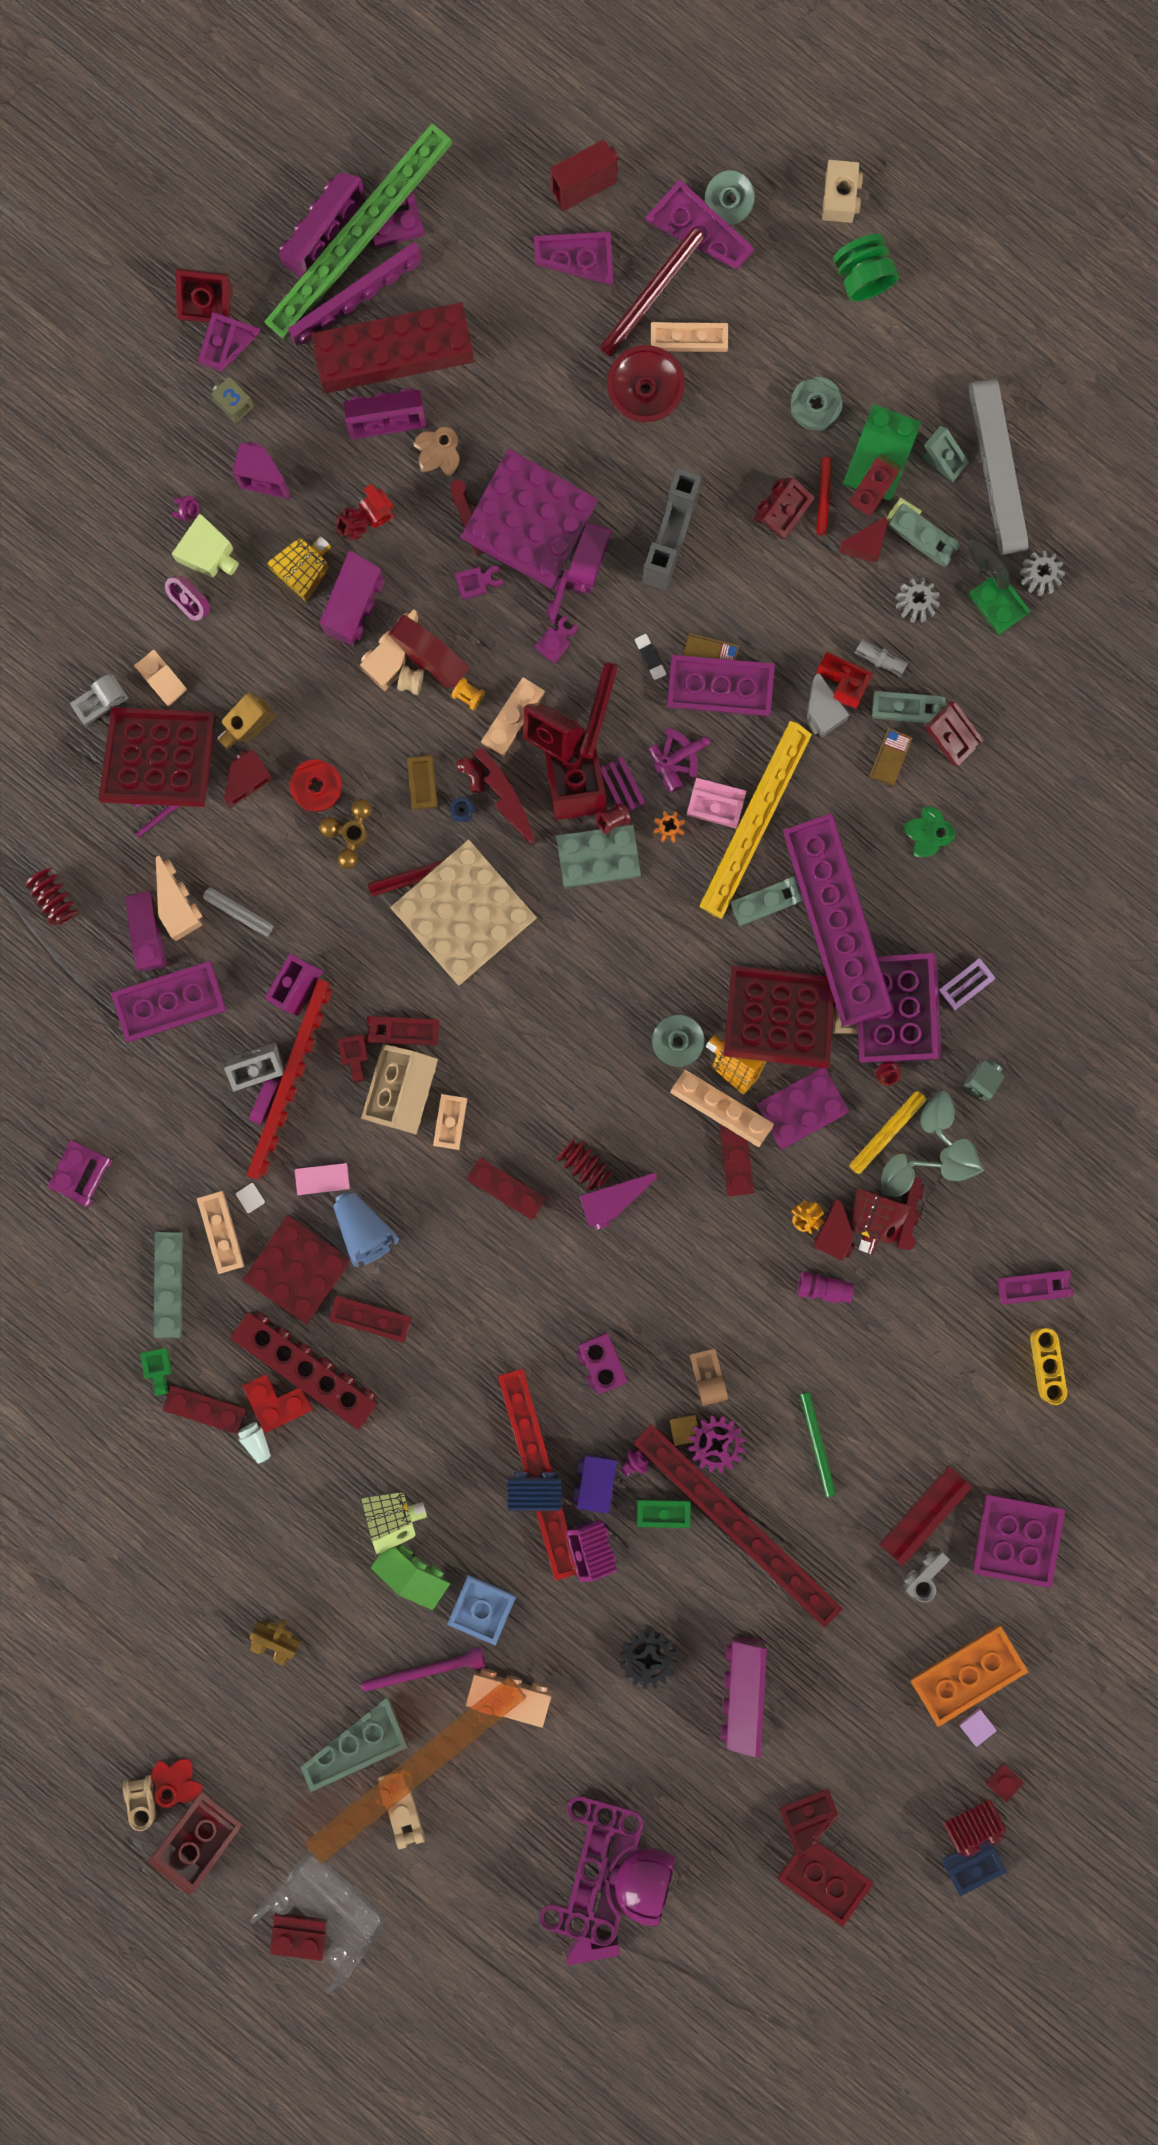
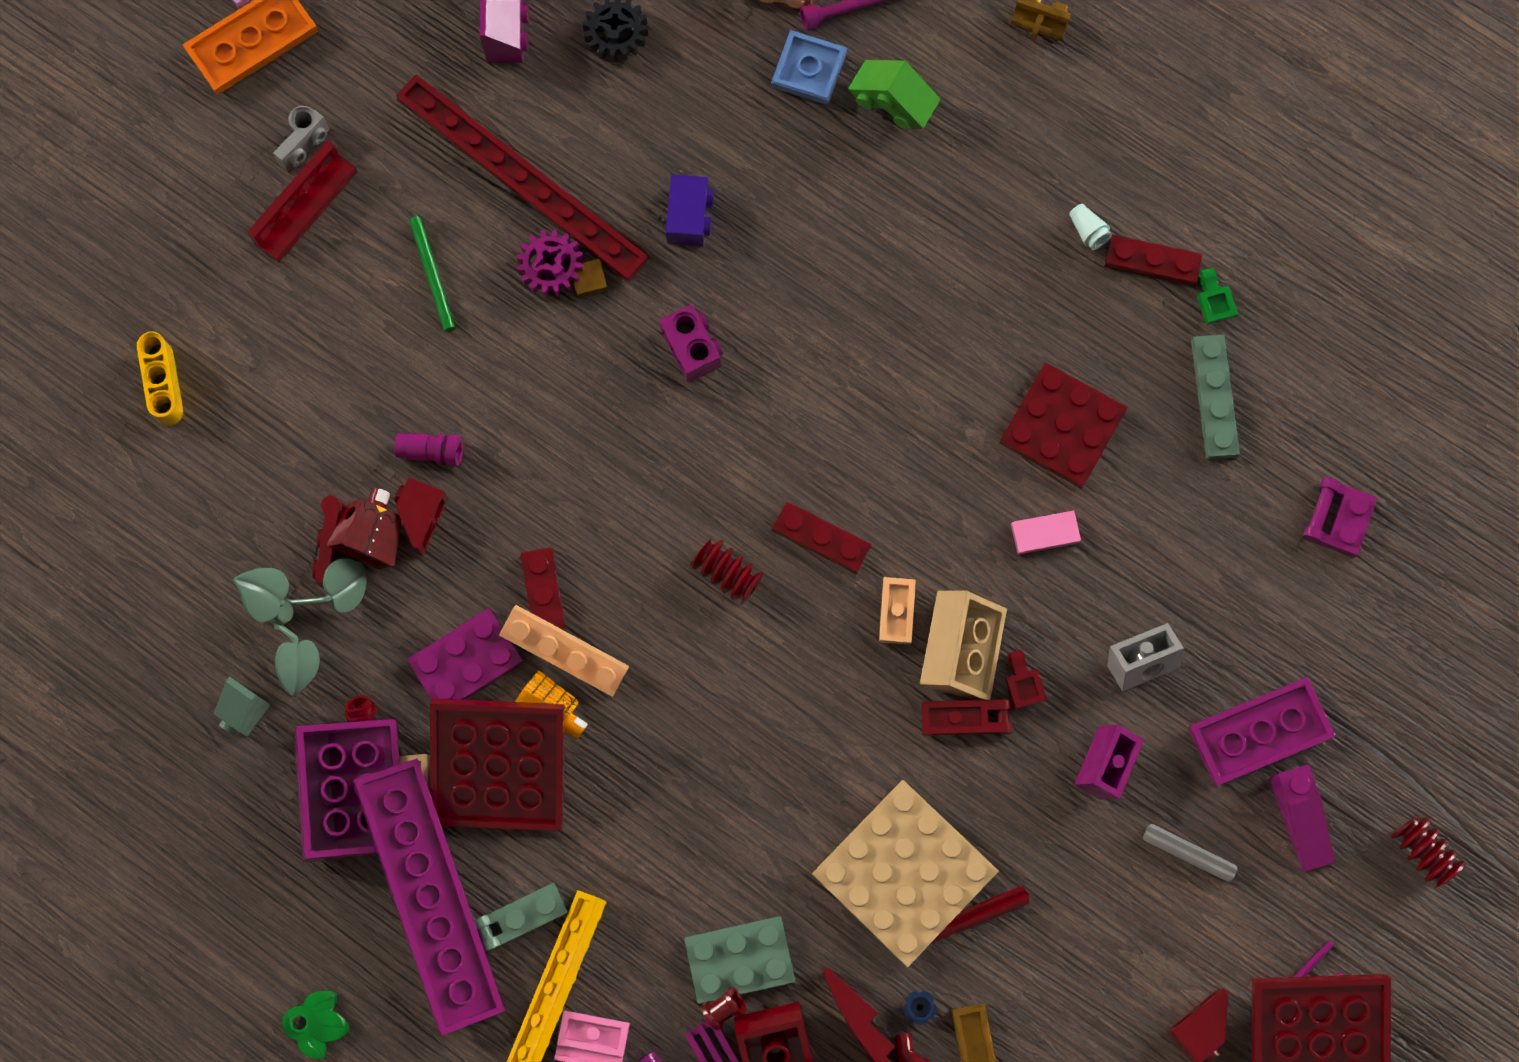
camera: 170 degrees right, 10 degrees down
(173, 906) = (1272, 852): light nougat slope -> none
(220, 1232) = (1160, 460): light nougat plate -> none
(246, 1337) = (1032, 295): dark red brick -> none
(250, 1198) = (1130, 505): white sticker -> none
(264, 1101) = (1127, 617): magenta beam -> none
(275, 1410) = (1072, 265): red plate -> none
(286, 1089) = (1095, 660): red plate -> none
(312, 800) = (1129, 1031): red plate -> none
(330, 828) = (1085, 969): pearl gold piece -> none
(362, 1229) = (991, 474): medium blue cone -> none
(370, 1318) = (970, 374): dark red plate -> none
(391, 1519) = (922, 150): yellowish green torso -> none
(534, 1492) = (758, 190): dark blue brick -> none
(535, 1459) = (756, 217): red plate -> none
(591, 1551) = (688, 135): magenta brick -> none
(611, 1201) = (688, 529): magenta slope -> none
(636, 1461) = (644, 235): magenta plate -> none
(663, 1513) = (607, 183): green plate -> none
(672, 833) = (648, 994): orange gear -> none
(682, 1027) = (611, 718): sand green dish -> none
(708, 1377) = (563, 337): medium nougat plate -> none
(807, 1216) = (453, 529): light orange gear -> none
(889, 1130) = (358, 639): yellow axle -> none
(949, 998) = (272, 840): lavender tile -> none
(1018, 1540) = (194, 184): magenta plate -> none
(1034, 1287) = (177, 468): magenta plate -> none

